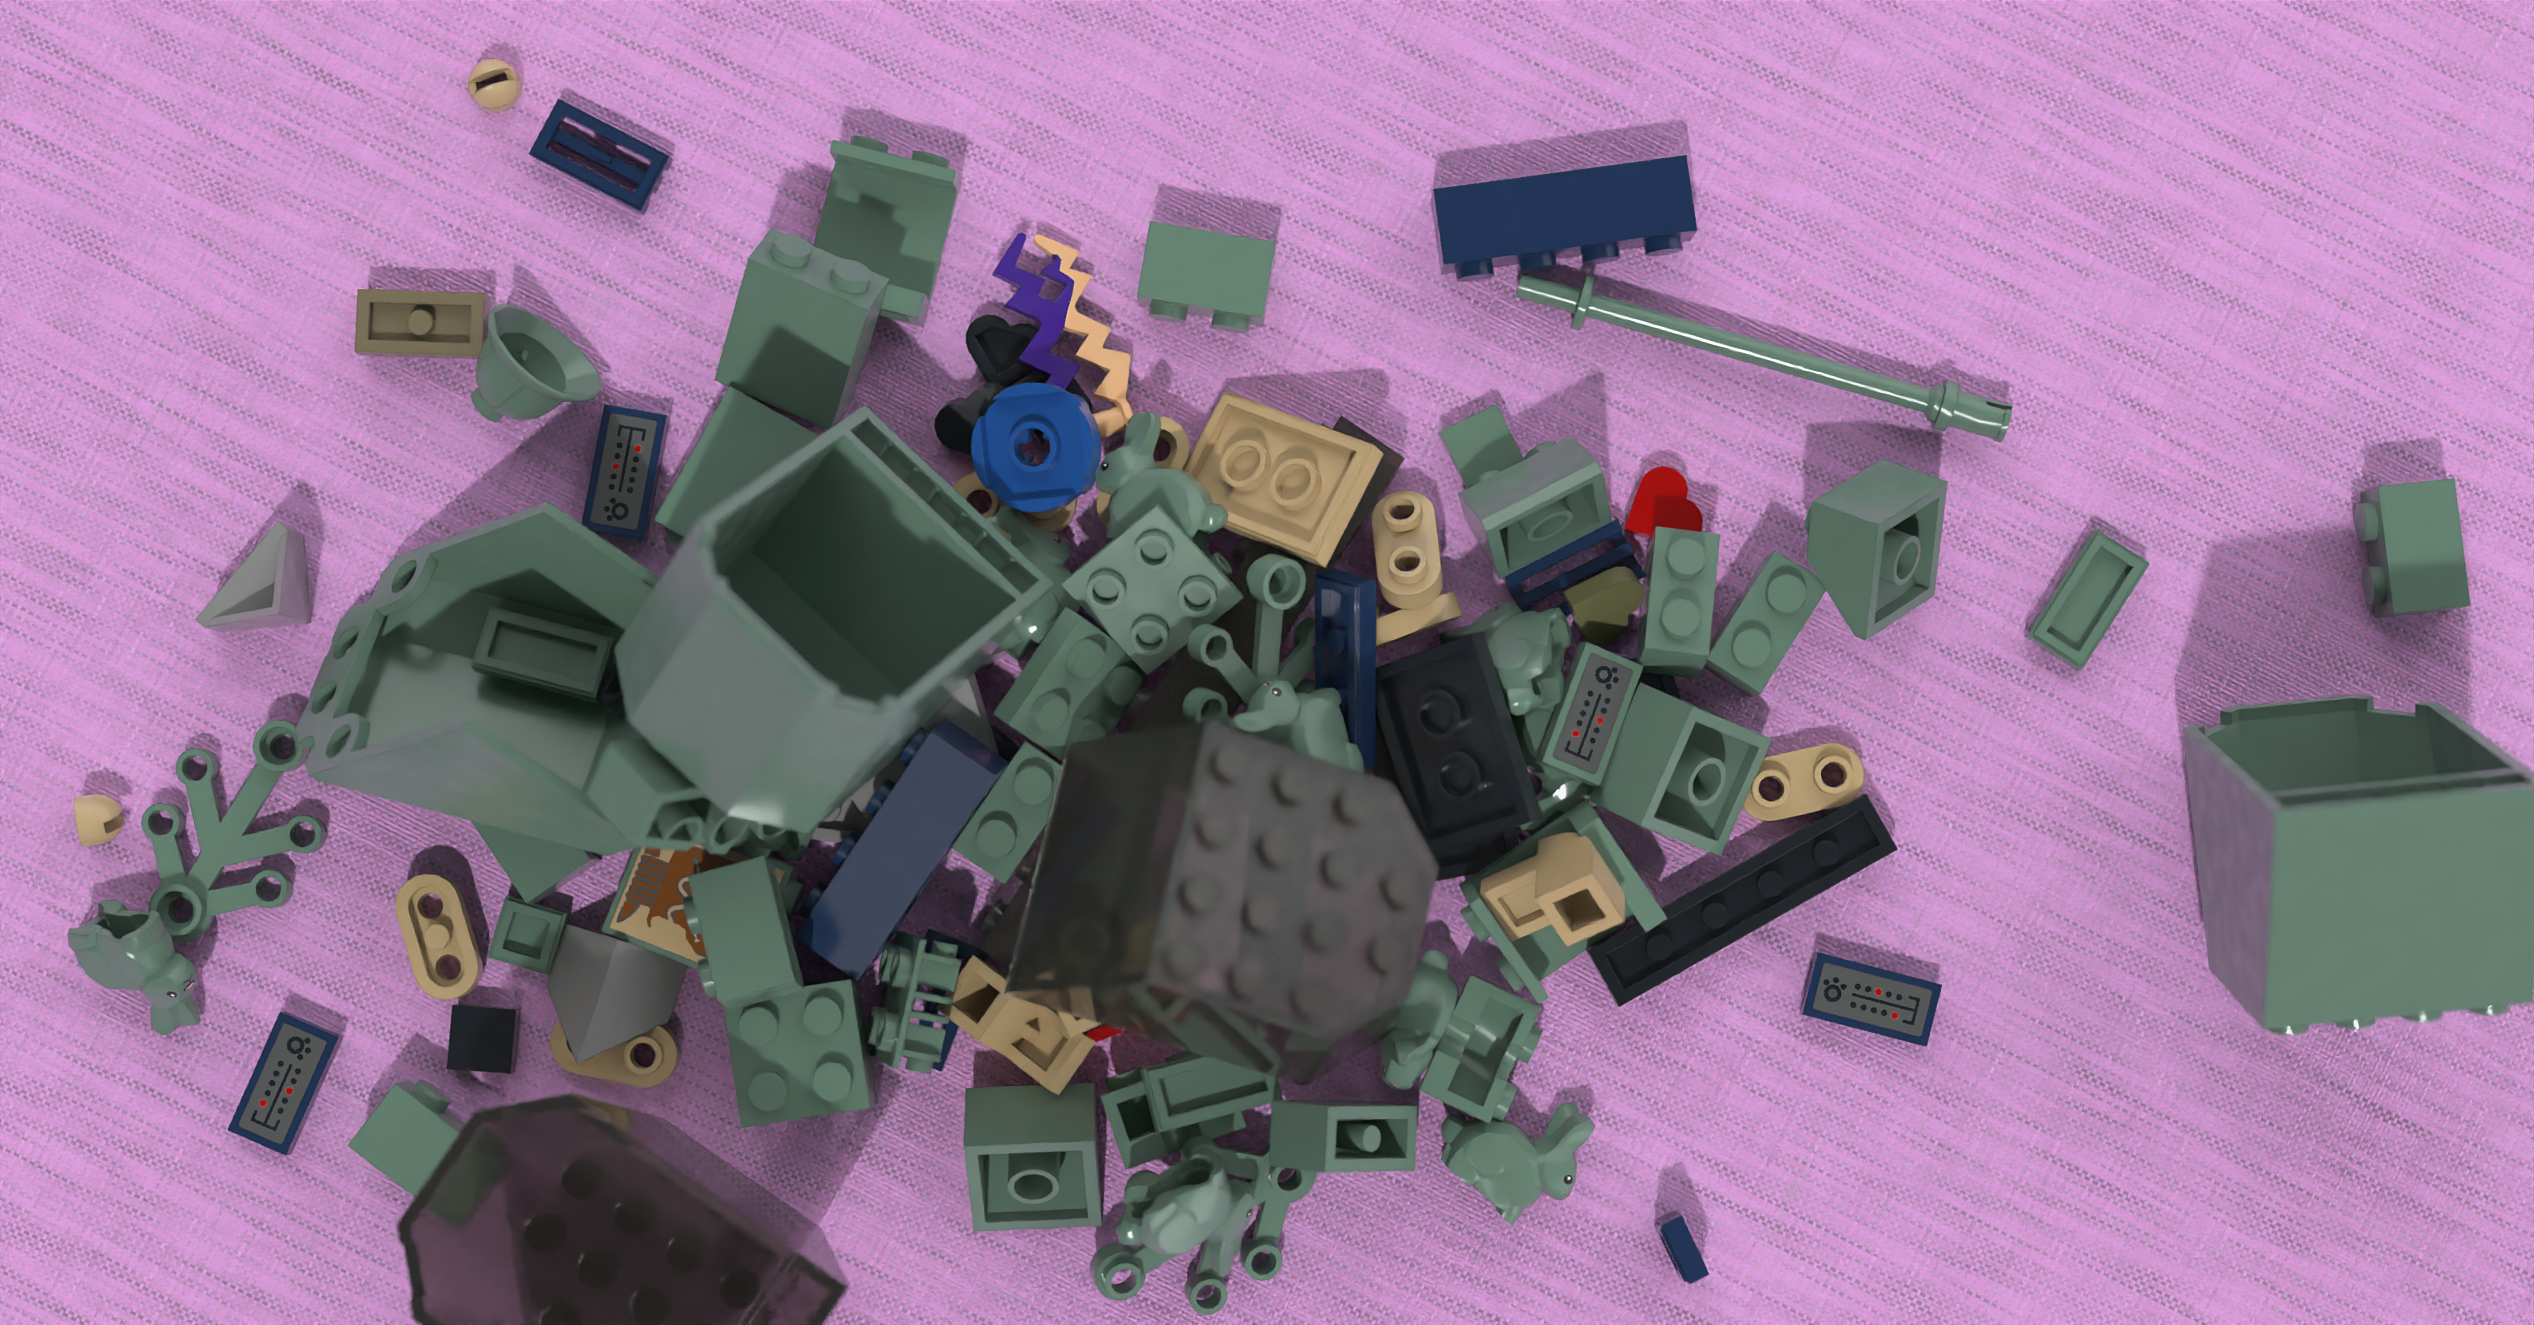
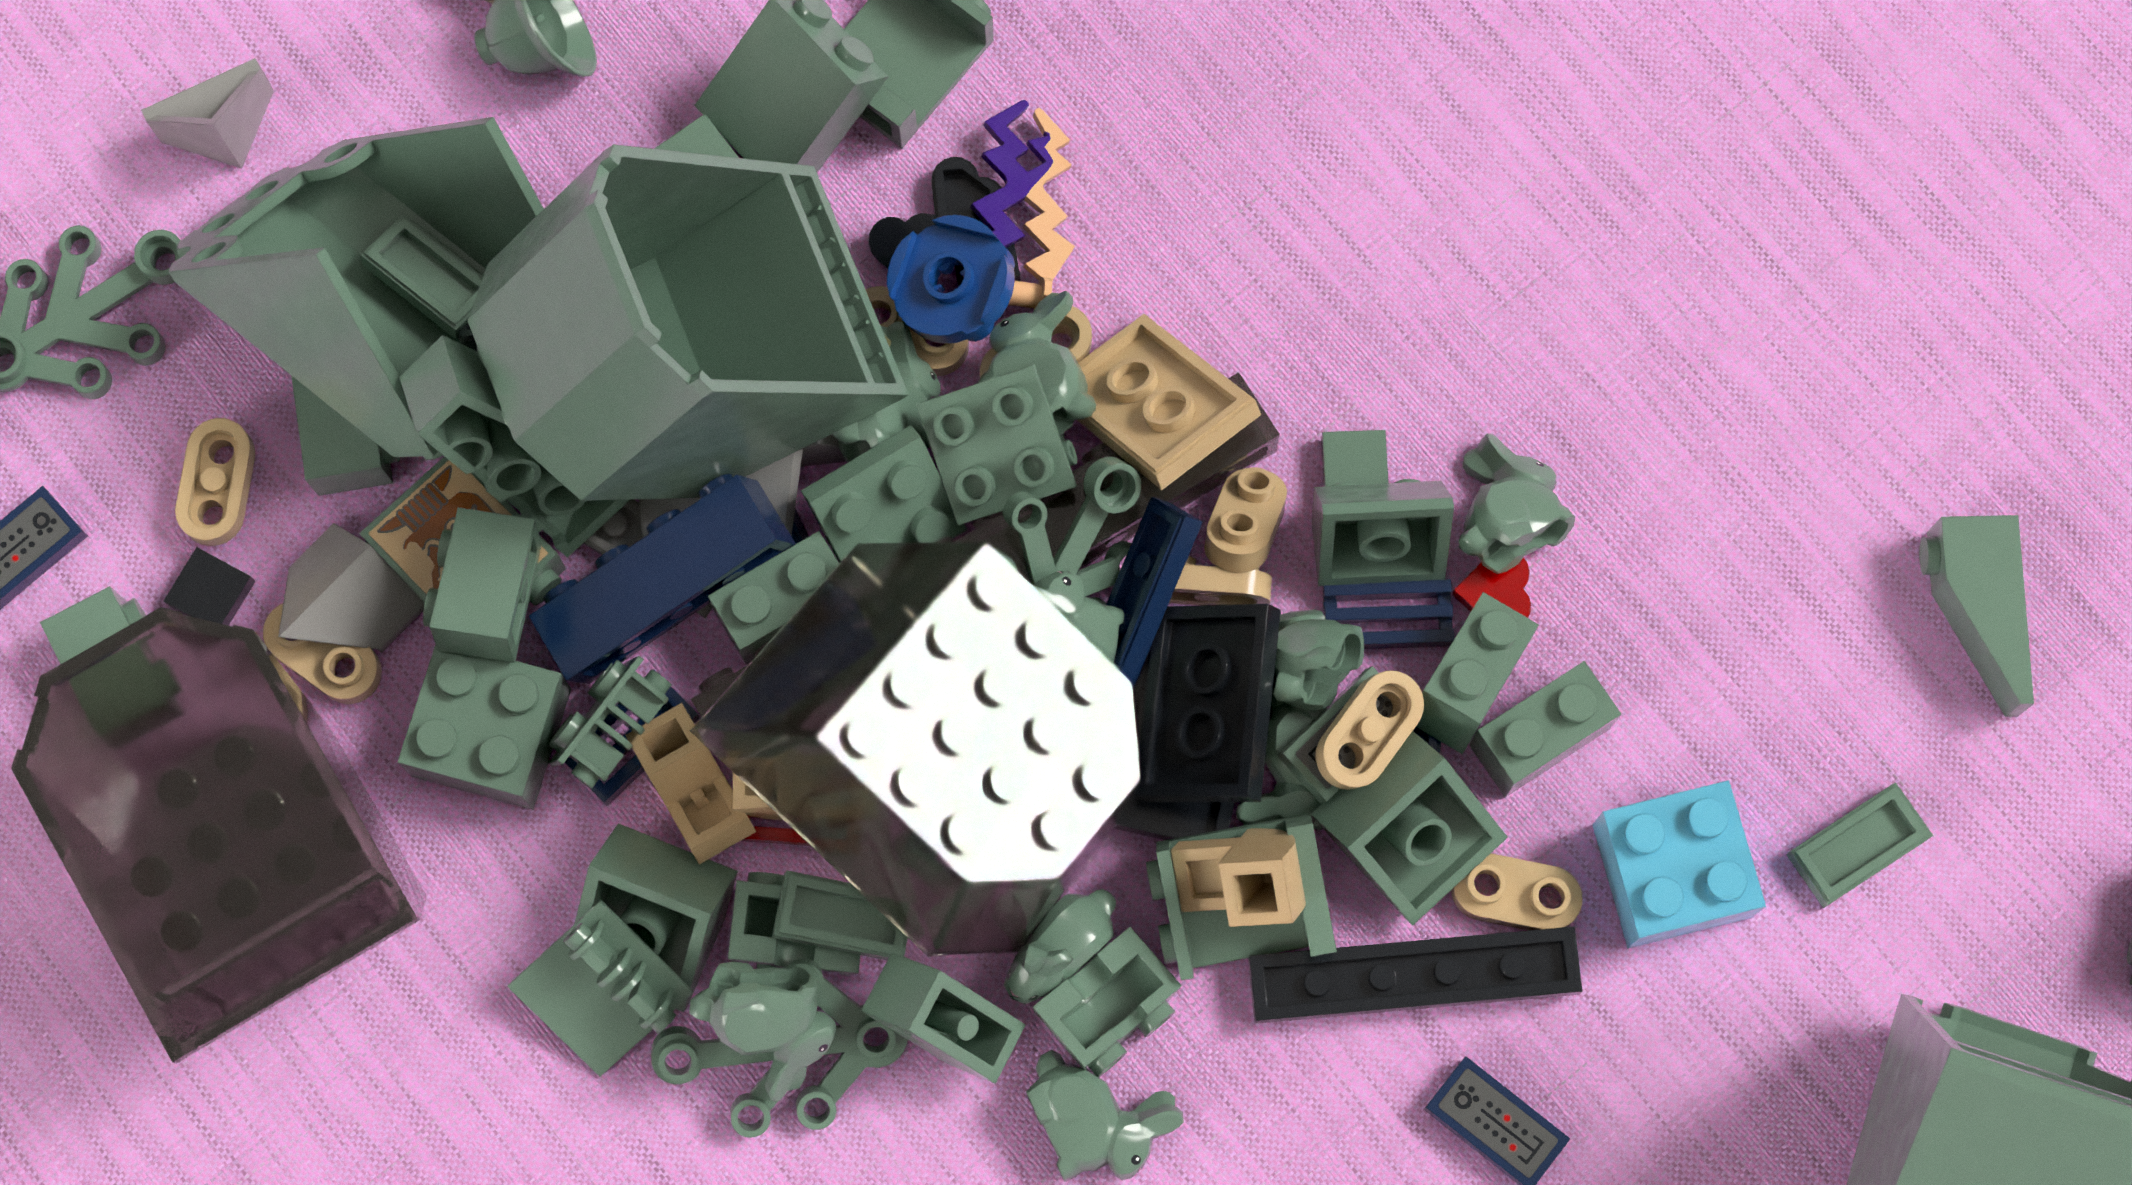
camera: 25 degrees right, 10 degrees down
(528, 935) = (294, 517): sand green tile -> none
(625, 472) = (577, 143): tile -> none
(1022, 1244) = (601, 988): none -> sand green hinge
(1205, 276) = (1173, 206): sand green brick -> none
(1564, 216) = (1520, 292): dark blue brick -> none
(1603, 604) = (1407, 643): olive tile -> none
(1616, 709) = (1367, 732): none -> tan plate
(1650, 431) = (1514, 508): none -> sand green animal
(1877, 543) = (1683, 699): sand green slope -> none
(1935, 695) = (1678, 864): none -> medium azure brick
(1941, 404) = (1794, 605): sand green bar -> none
(2104, 318) = (1982, 594): none -> sand green slope

